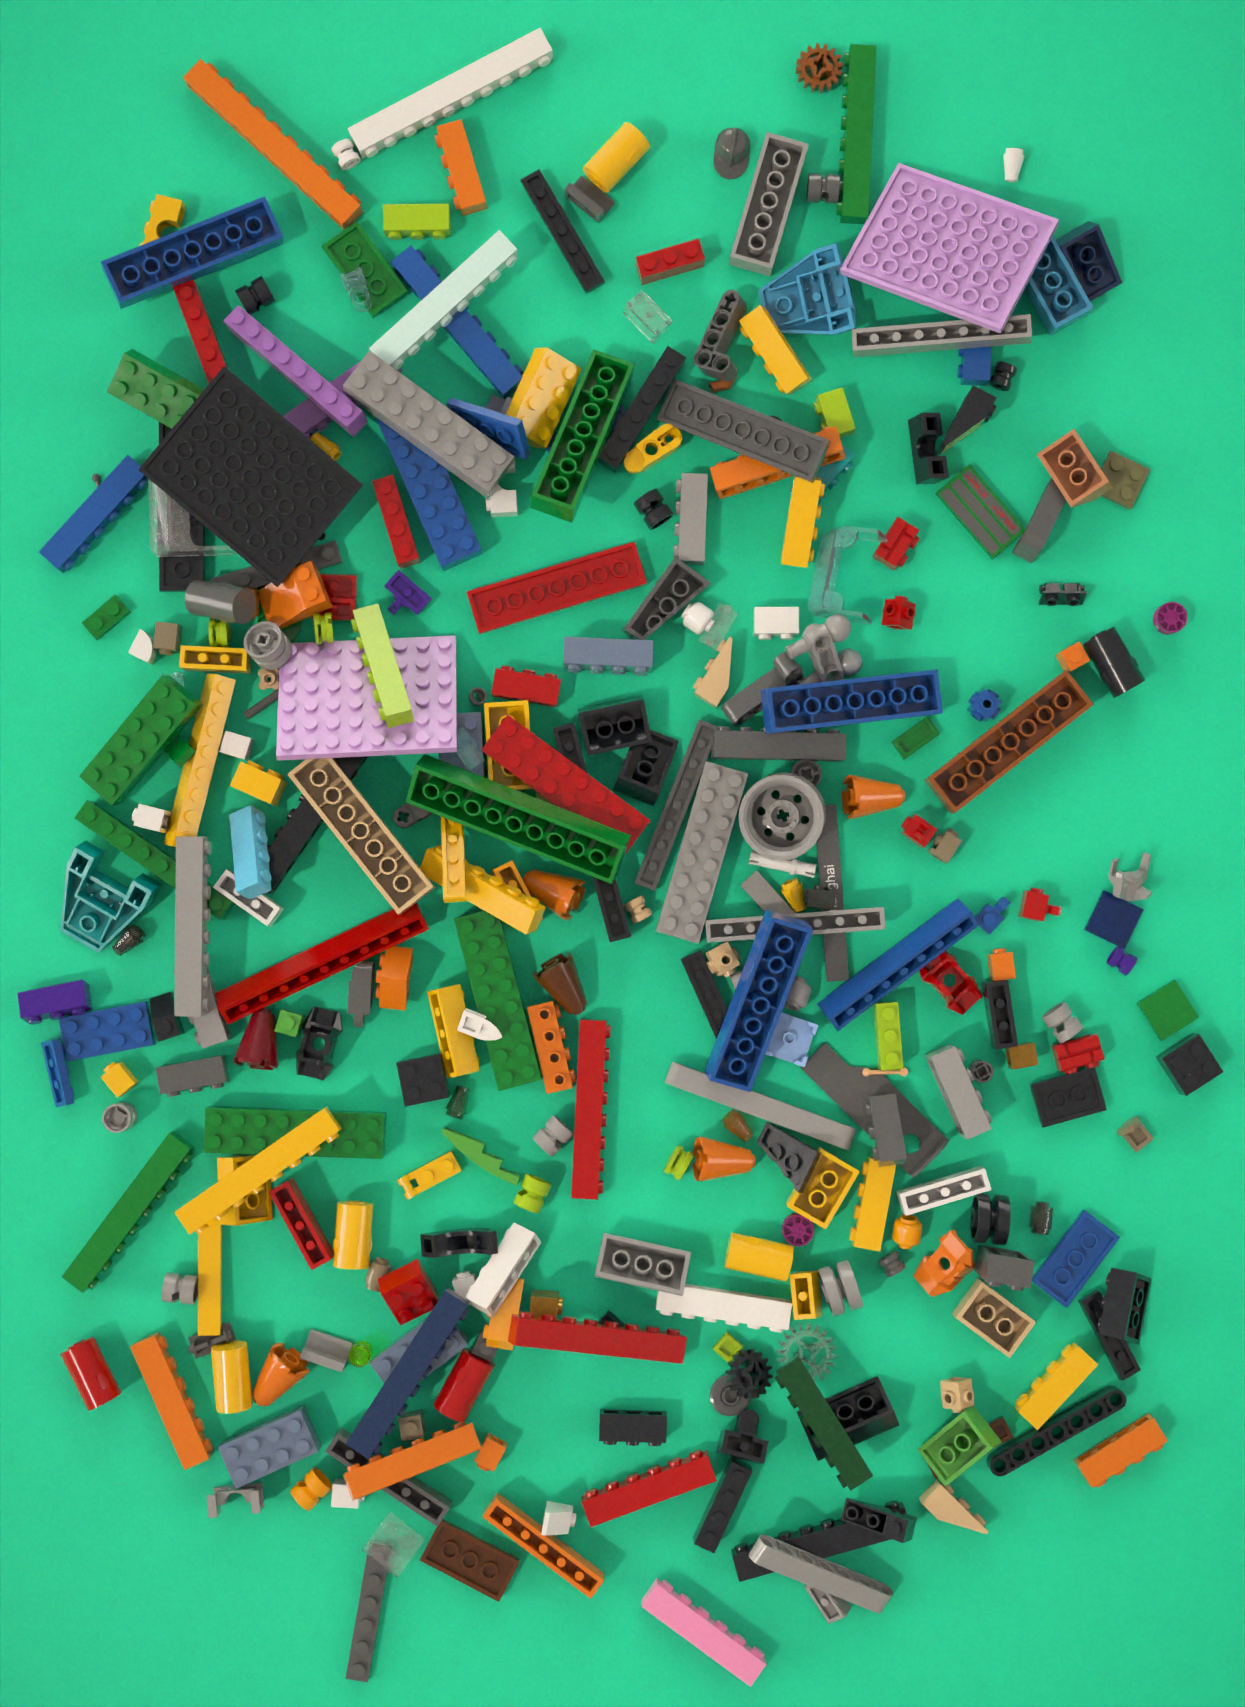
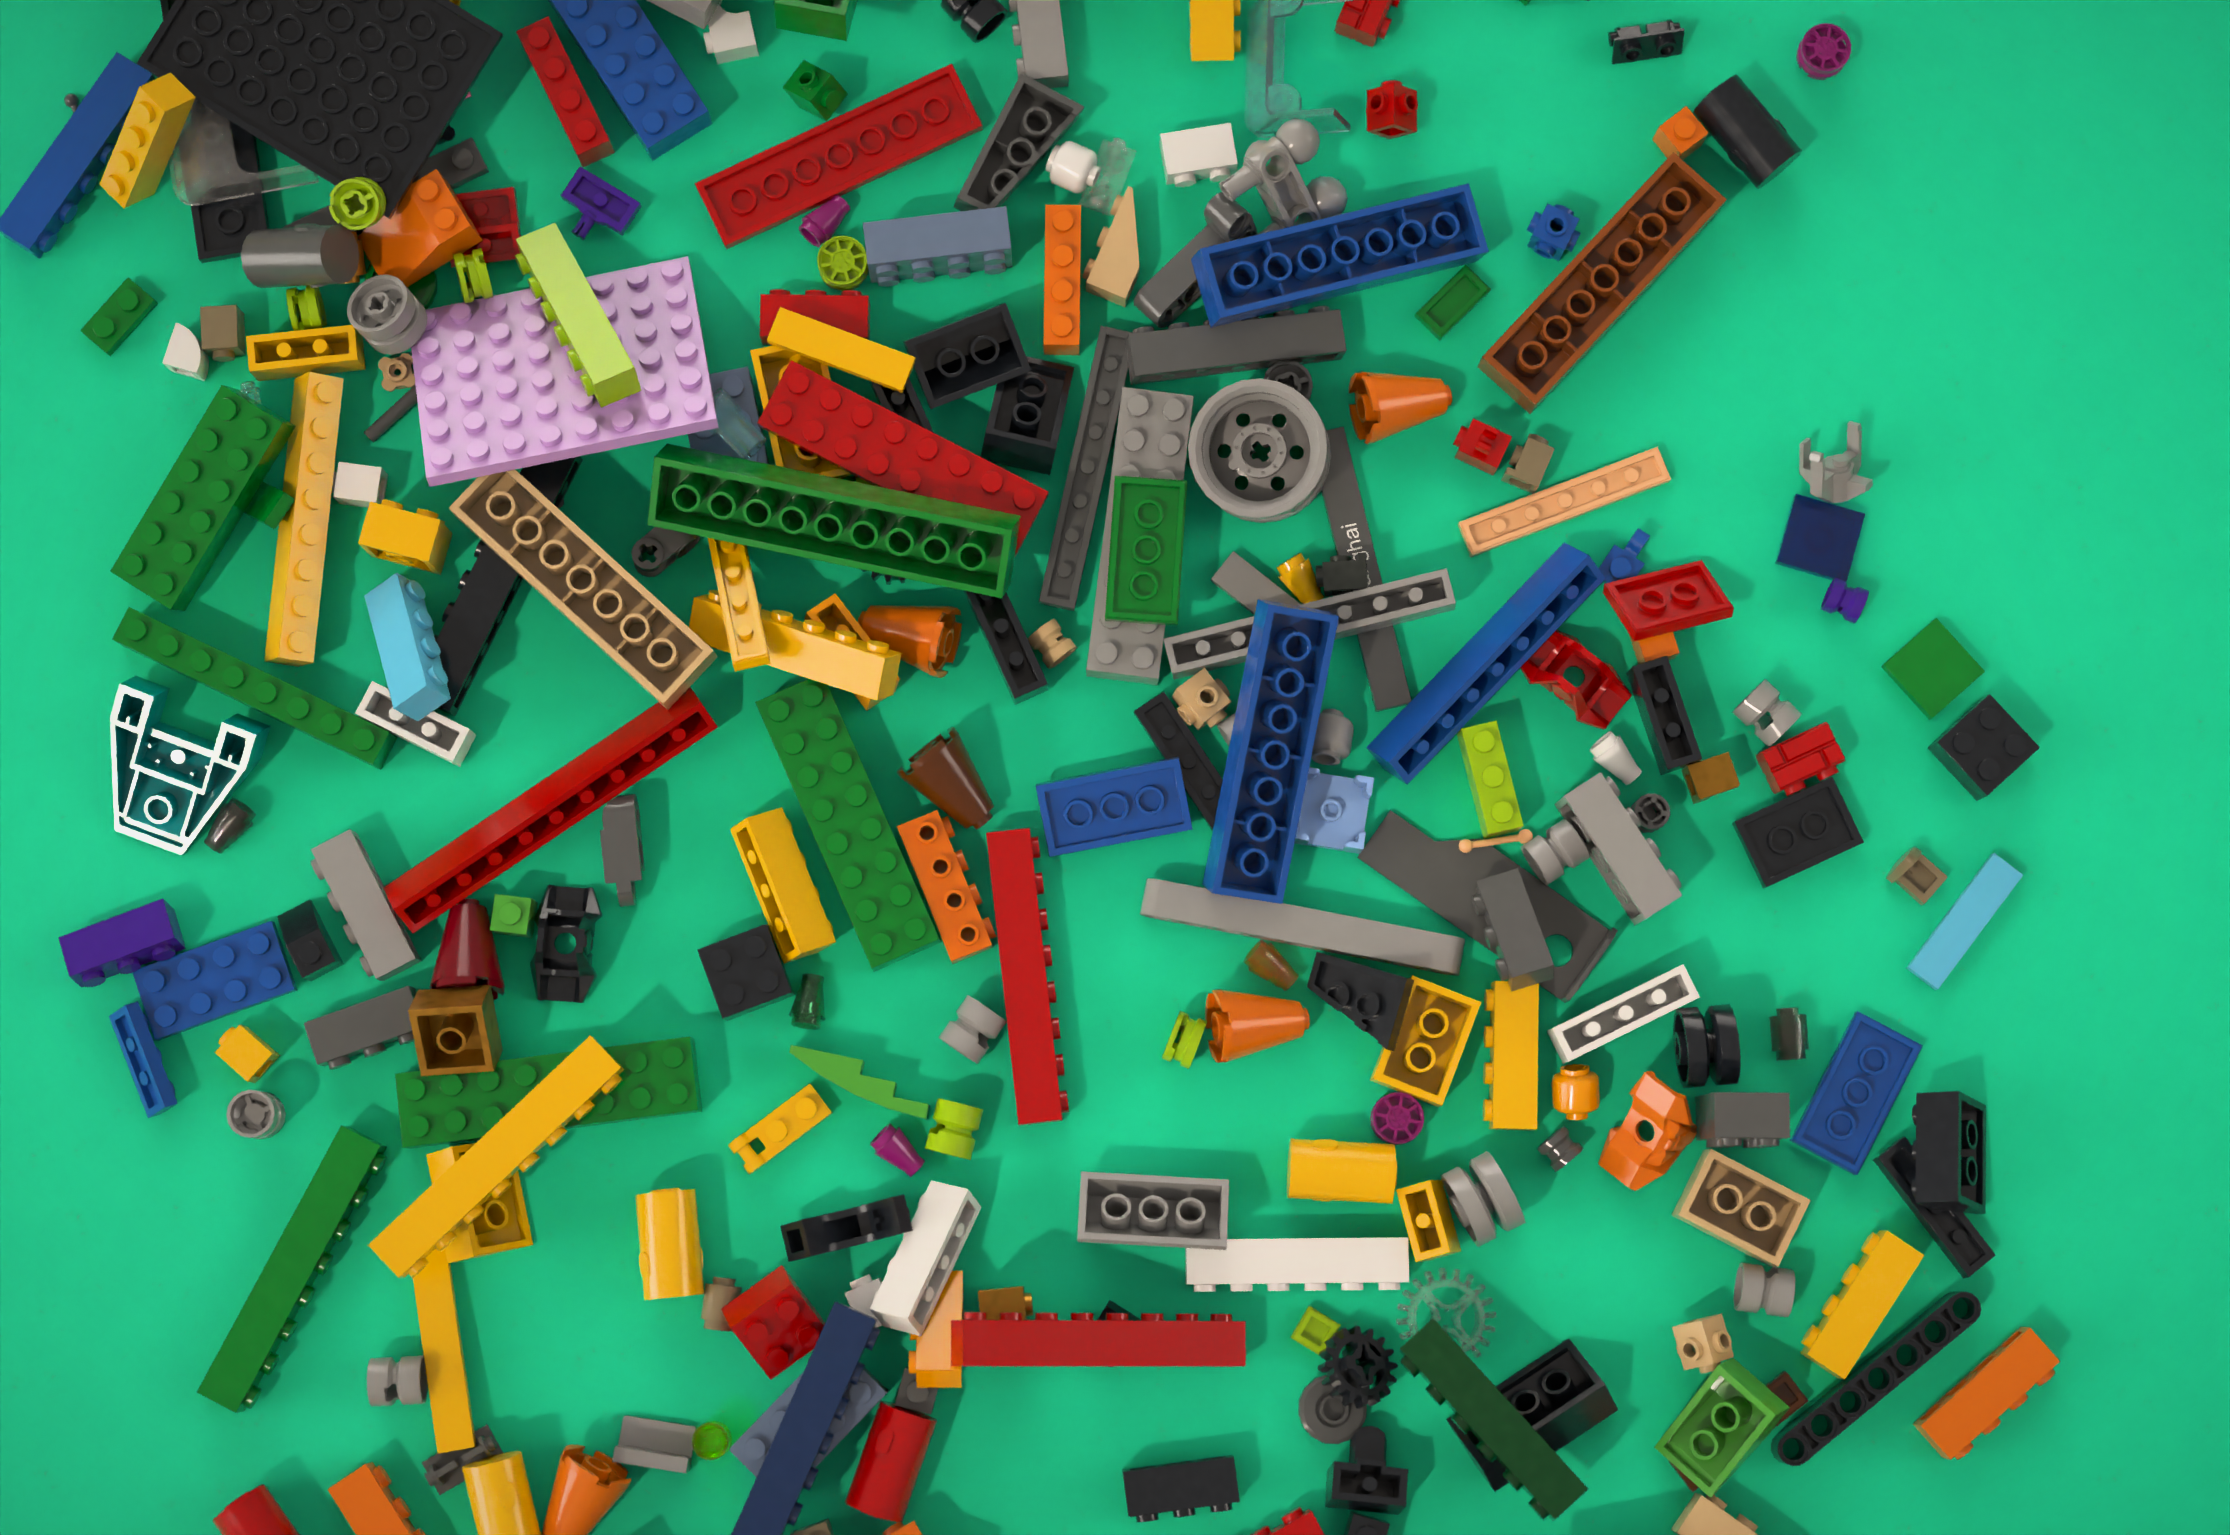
camera: 10 degrees left, 5 degrees down
(138, 515) = (147, 140): none -> yellow brick
(151, 818) = (238, 620): white brick -> none
(191, 926) = (329, 779): light grey brick -> none
(245, 1089) = (455, 1030): none -> pearl gold brick
(259, 576) = (357, 203): none -> lime wheel
(302, 1223) = (582, 1239): red brick -> none
(394, 978) = (673, 815): orange brick -> none
(477, 1026) = (821, 866): white plate -> none
(481, 694) = (744, 344): dark grey hinge -> none
(496, 1199) = (897, 1150): none -> magenta cone
(539, 712) = (841, 350): none -> yellow tile
(541, 627) = (824, 221): none -> magenta cone
(548, 545) = (815, 90): none -> green brick
(548, 655) = (842, 263): none -> lime wheel
(659, 1015) = (1114, 806): none -> blue plate
(680, 687) = (1062, 279): none -> orange brick
(703, 865) = (1146, 550): none -> green tile
(789, 865) = (1273, 534): white pin -> none
(920, 1085) = (1551, 854): none -> light grey wheel
(962, 871) = (1564, 501): none -> light nougat tile
(965, 1033) = (1615, 757): none -> white cone
(999, 1368) = (1763, 1289): none -> light grey wheel
(1014, 945) = (1668, 600): none -> red tile
(1035, 905) = (1690, 535): red brick -> none
(1158, 1166) = (1964, 921): none -> medium azure tile

